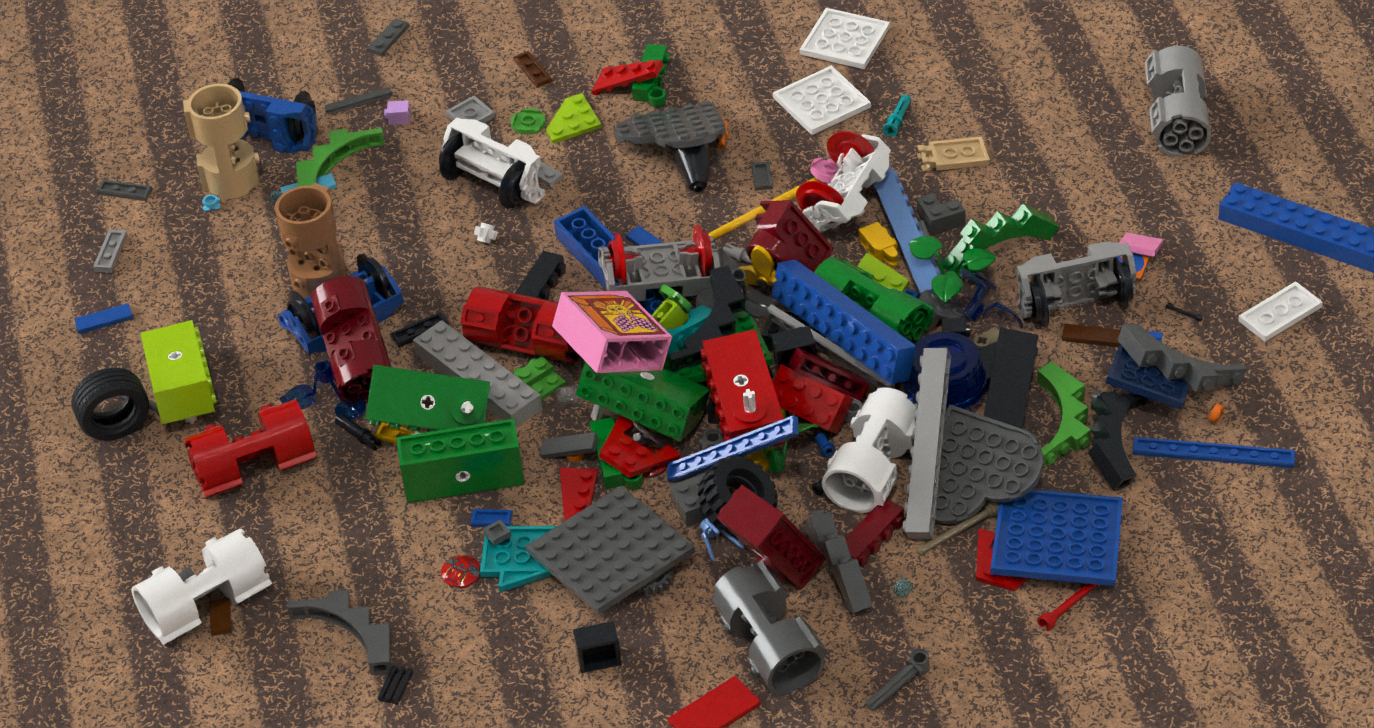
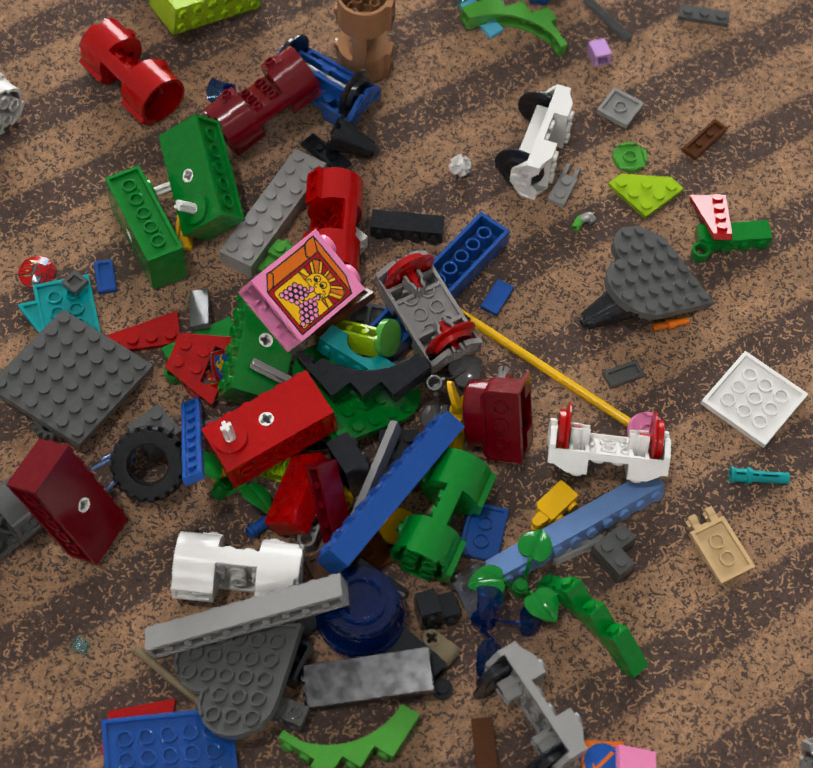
camera: 65 degrees right, 15 degrees up
(415, 303) = (350, 139): none -> black cone
(584, 166) = (586, 217): none -> arm
(686, 379) = (268, 371): none -> light grey axle
(836, 552) = (91, 567): dark grey arch -> none
(874, 530) = (141, 597): dark red brick -> none
(883, 274) = (504, 516): lime wing -> none

